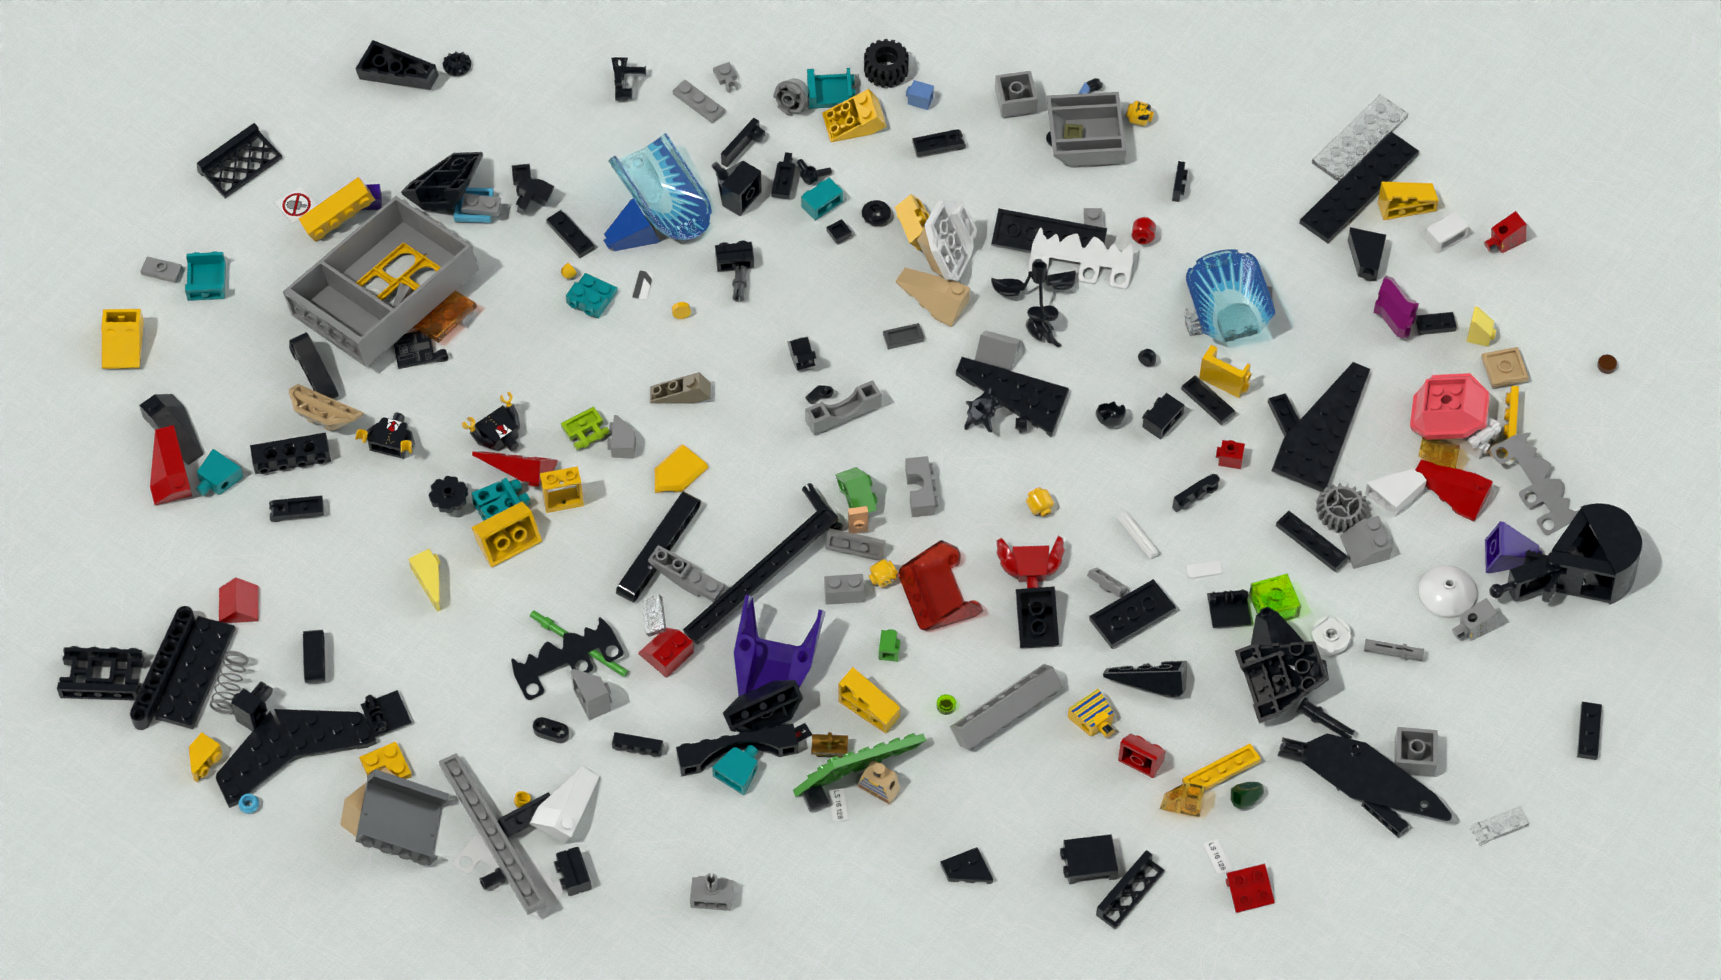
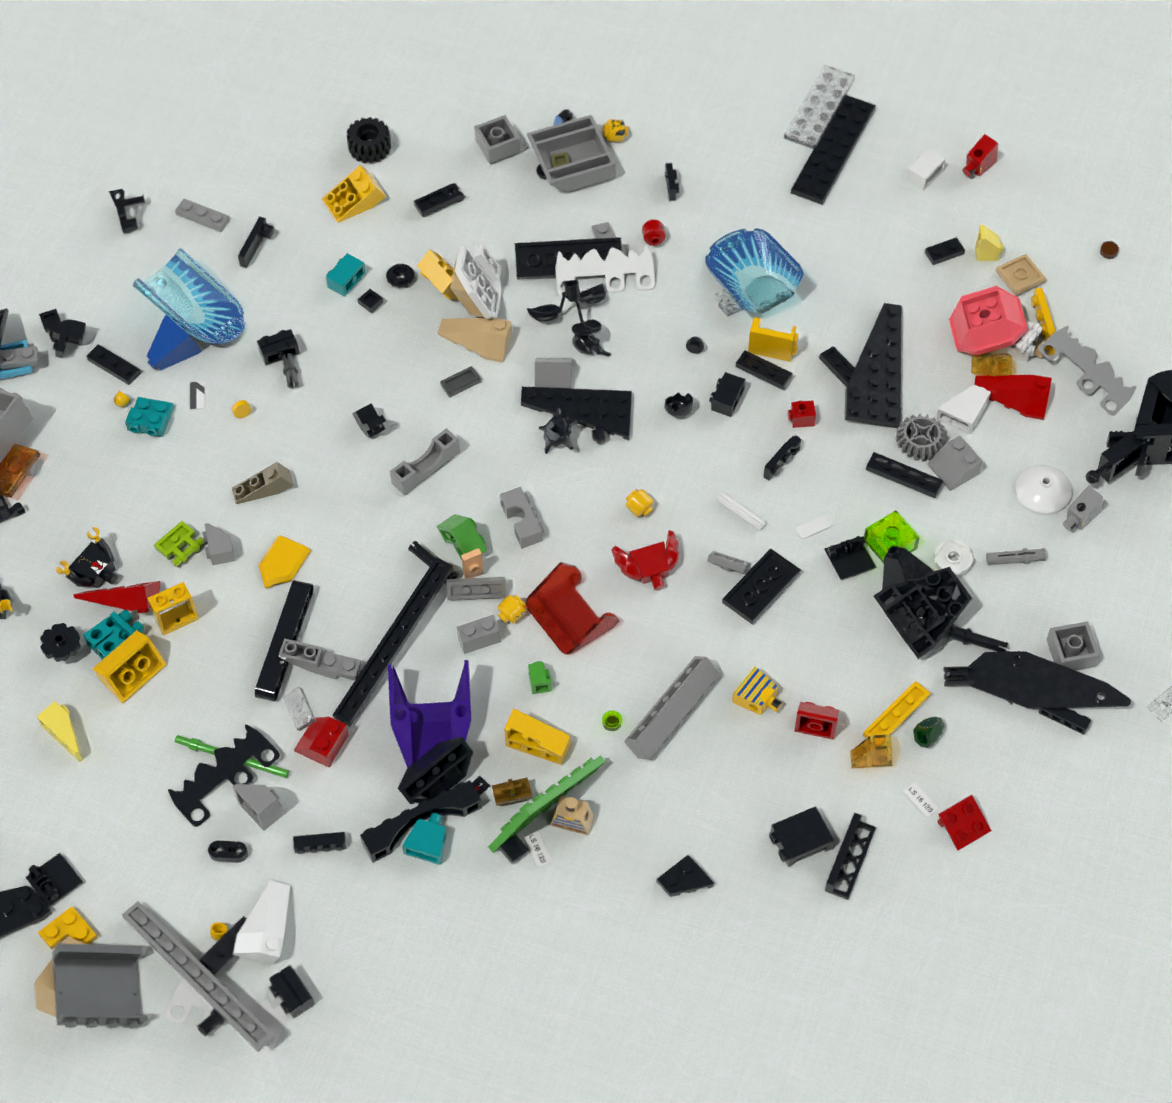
camera: 15 degrees left, 0 degrees up
(711, 893) = (439, 975): light grey brick -> none
(726, 75) = (221, 185): light grey plate -> none
(738, 185) = (263, 281): black piece -> none
(783, 177) = (303, 264): black hinge -> none
(791, 96) = (289, 189): light grey cone -> none
(810, 174) = (328, 255): black piece -> none
(820, 392) = (396, 453): black arm -> none
(830, 89) = (322, 176): teal panel -> none
(920, 94) = (408, 161): medium blue brick -> none
(1037, 617) = (672, 612): black slope -> none
(1163, 679) = (813, 640): black wedge -> none
(1366, 251) = (861, 203): black slope -> none
(1396, 307) = (906, 245): magenta brick -> none
(1406, 199) = (880, 148): yellow wedge -> none
(1506, 548) = (1084, 436): dark purple slope -> none

